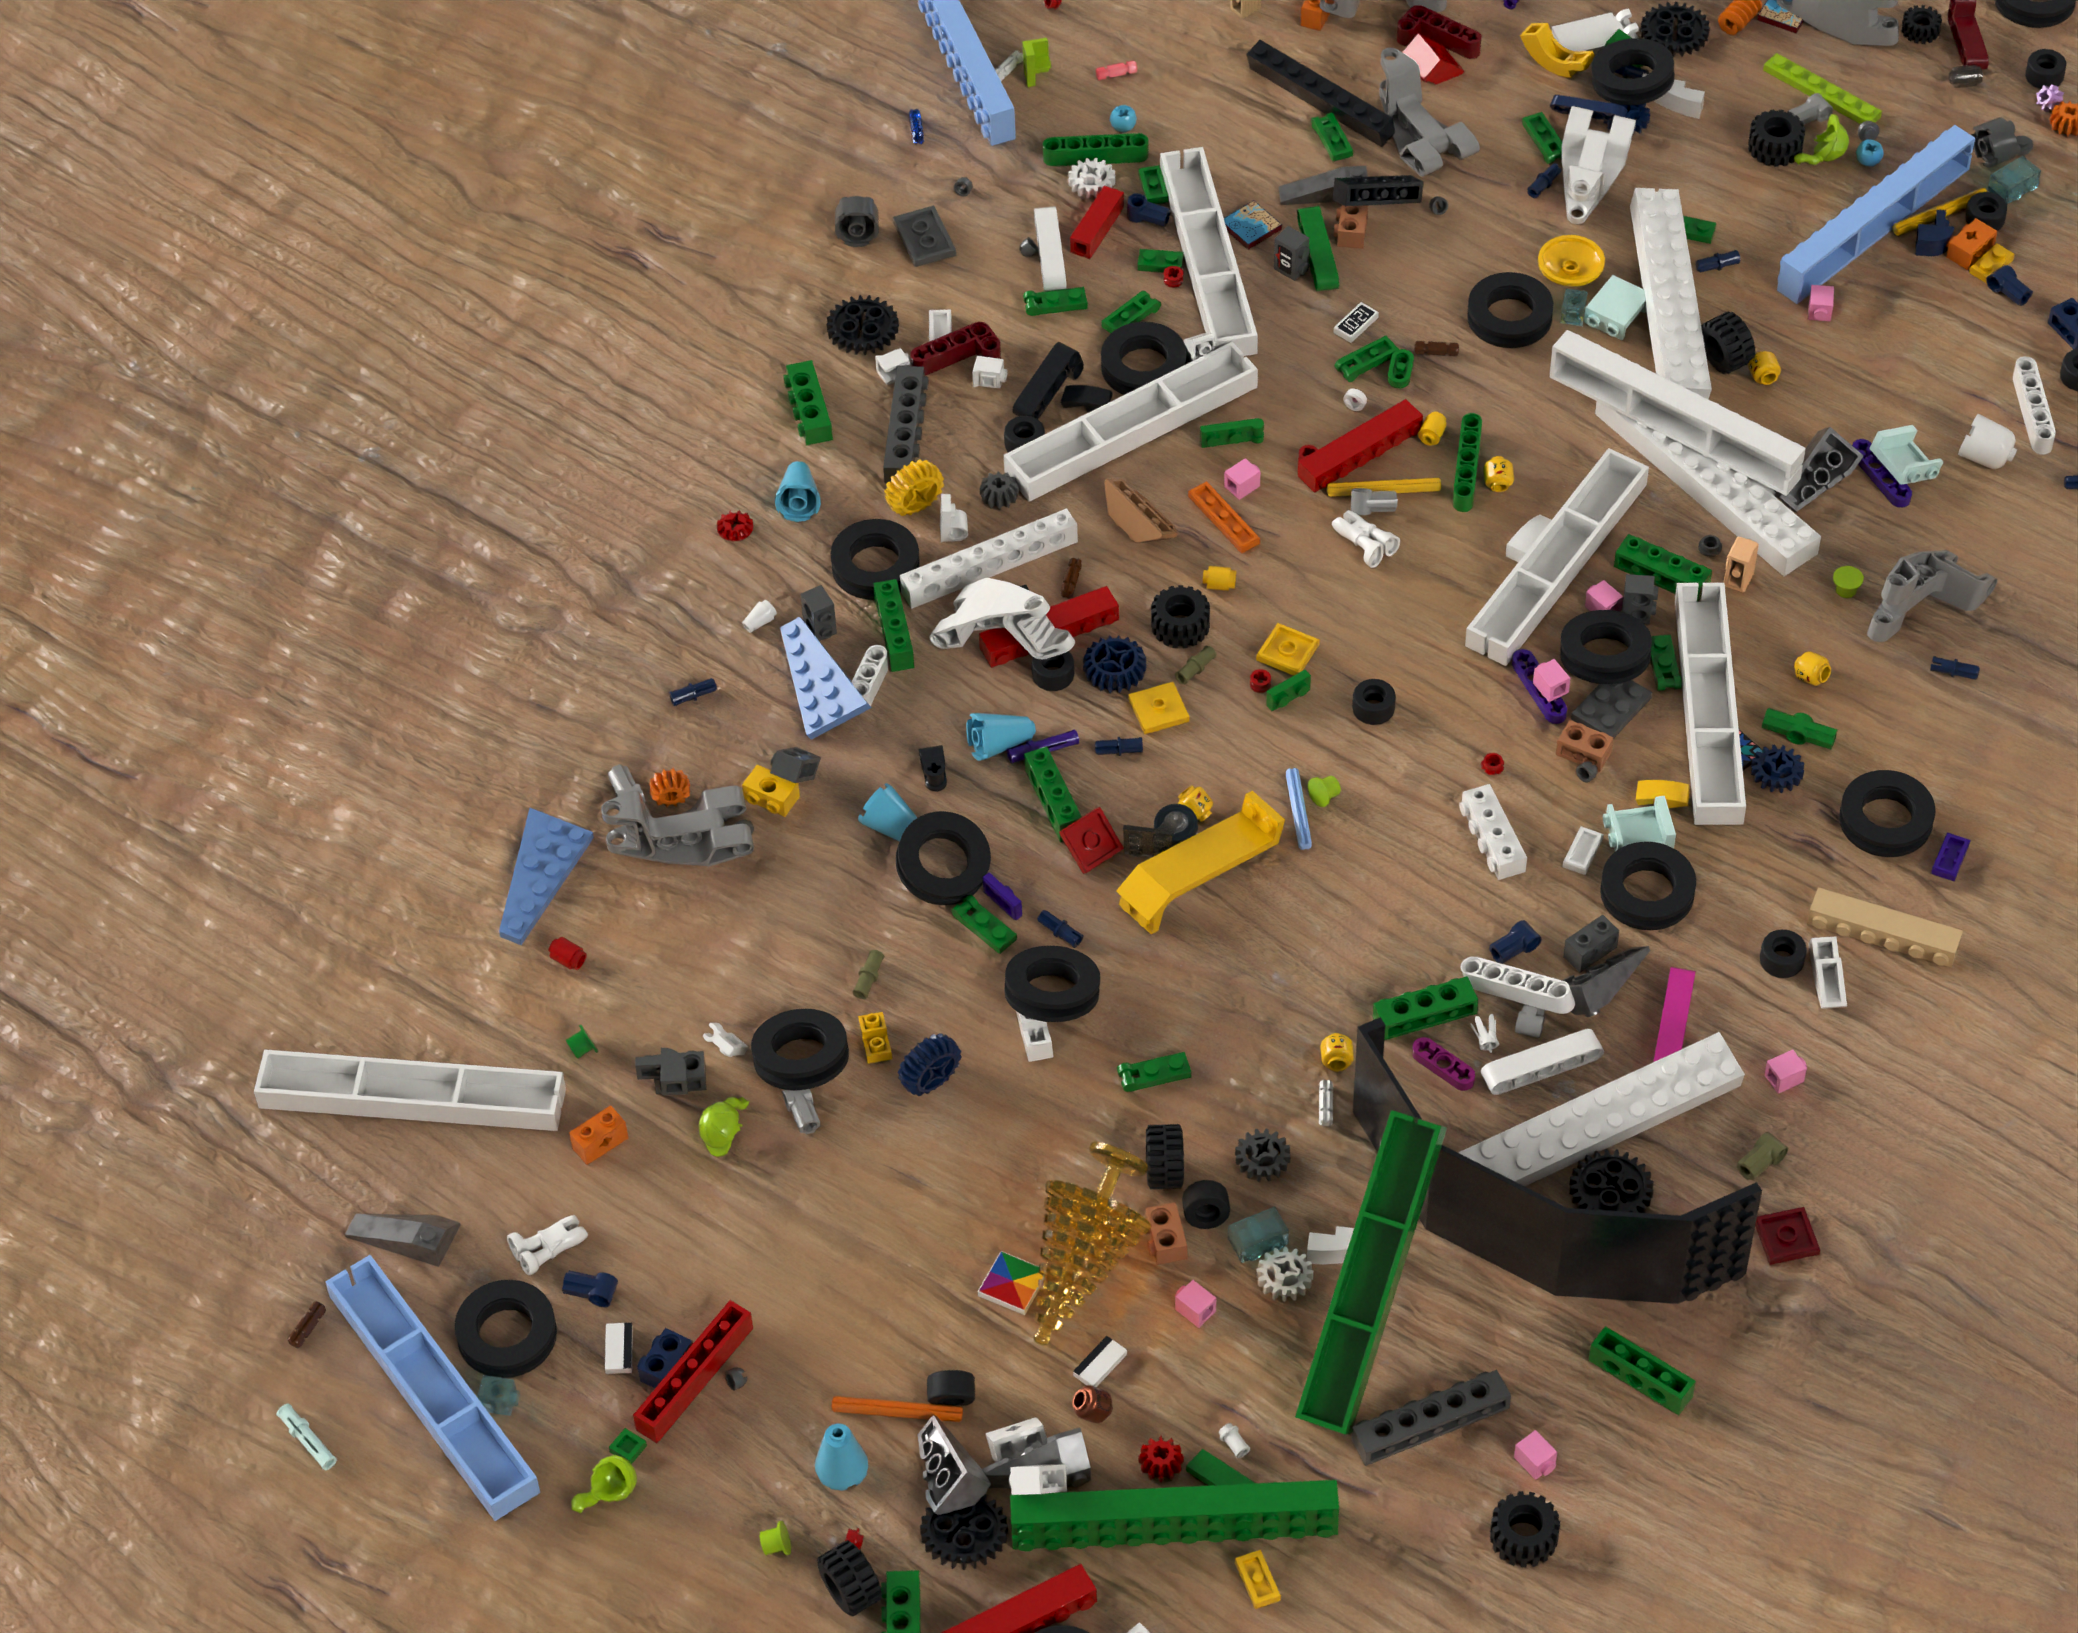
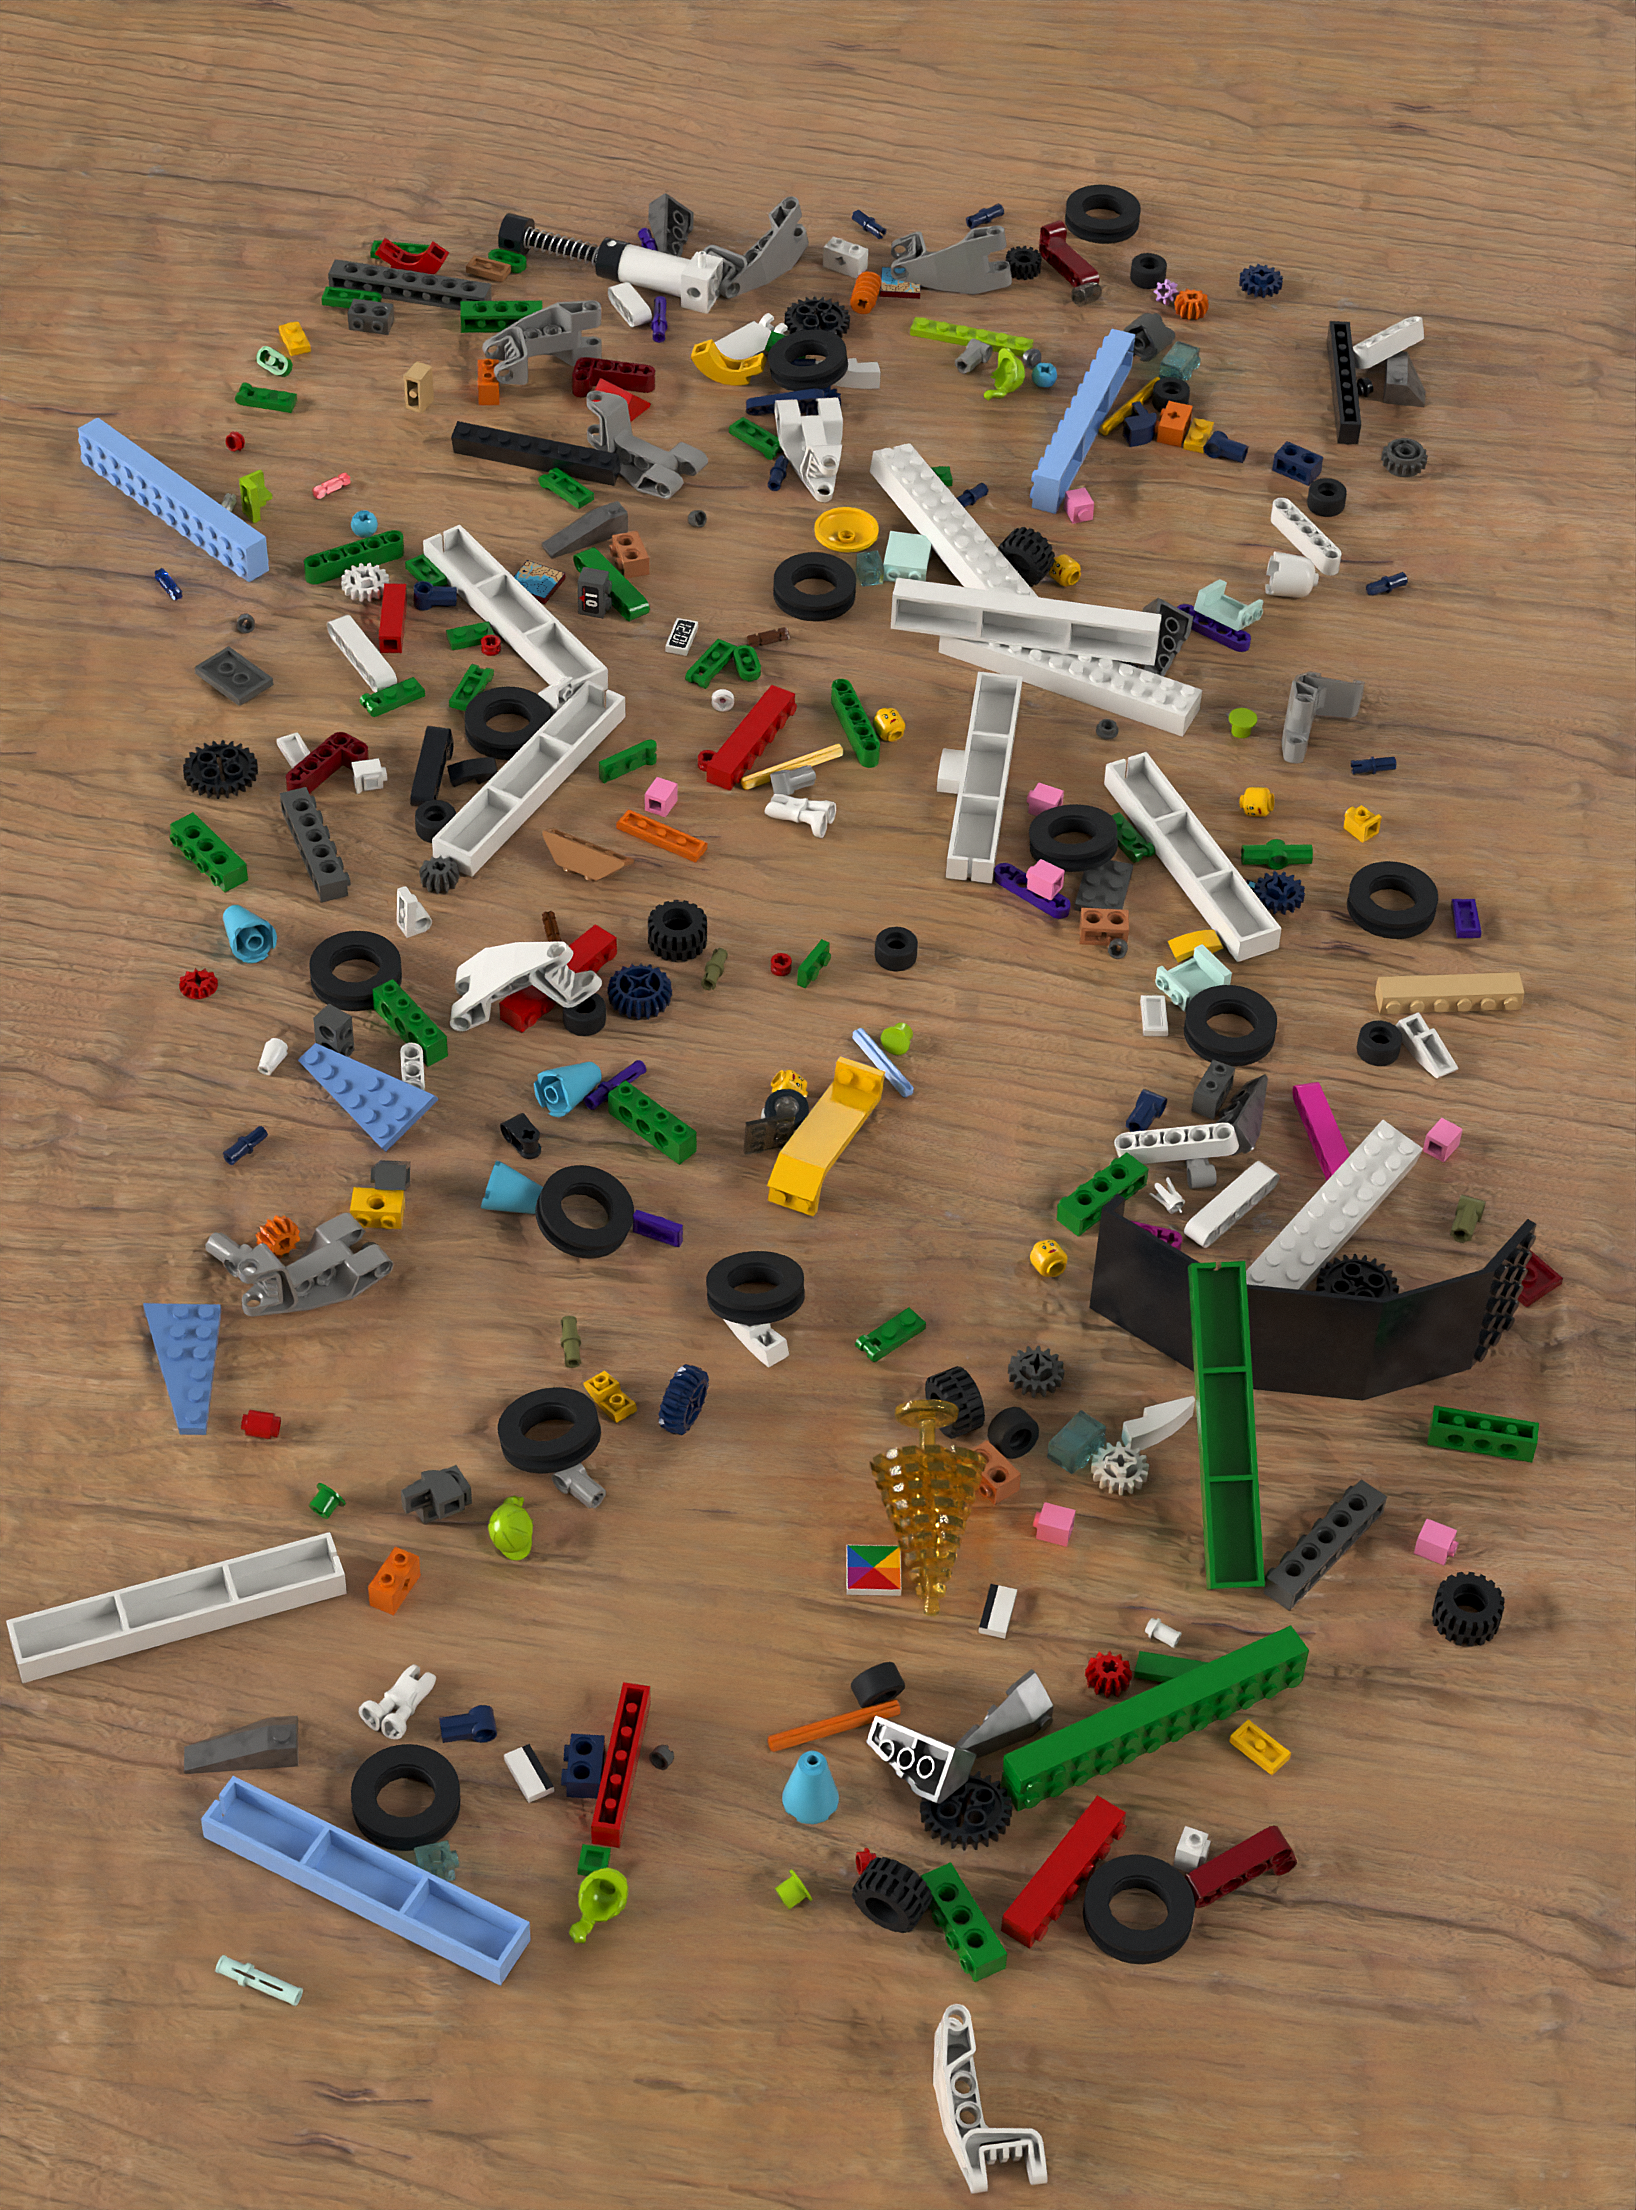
camera: 30 degrees left, 5 degrees down
(306, 1324) = (195, 1872): reddish brown axle -> none
(727, 1042) = (472, 1451): white plate -> none
(856, 220) = (163, 679): dark grey brick -> none
(887, 364) = (268, 797): white window -> none
(914, 487) = (360, 894): yellow gear -> none
(984, 924) = (653, 1260): green plate -> none
(988, 558) = (467, 935): white brick -> none
(1016, 1437) = (968, 1708): white brick -> none
(1028, 247) = (339, 658): dark grey hinge -> none
(1038, 1479) = (1021, 1731): white brick -> none
(1060, 928) = (728, 1238): dark blue axle -> none
(1091, 840) = (713, 1150): red plate -> none
(1092, 1404) = (1018, 1648): copper head -> none
(1119, 746) = (686, 1061): dark blue axle -> none
(1159, 707) = (701, 1017): yellow plate -> none
(1219, 578) = (692, 887): yellow brick -> none
(1287, 649) = (790, 929): yellow plate -> none
(1326, 1103) = (1062, 1307): white axle -> none
(1378, 190) = (641, 517): black brick -> none
(1432, 428) = (807, 704): yellow brick -> none
(1493, 832) = (1070, 1024): white brick -> none
(1495, 760) = (1032, 968): red plate -> none
(1639, 597) = (1079, 785): dark grey brick -> none
(1646, 559) = (1075, 758): green brick -> none
(1740, 564) = (1148, 732): light nougat brick -> none
(1776, 137) = (960, 383): black tyre -> none
(1903, 720) = (1361, 823): none -> yellow brick

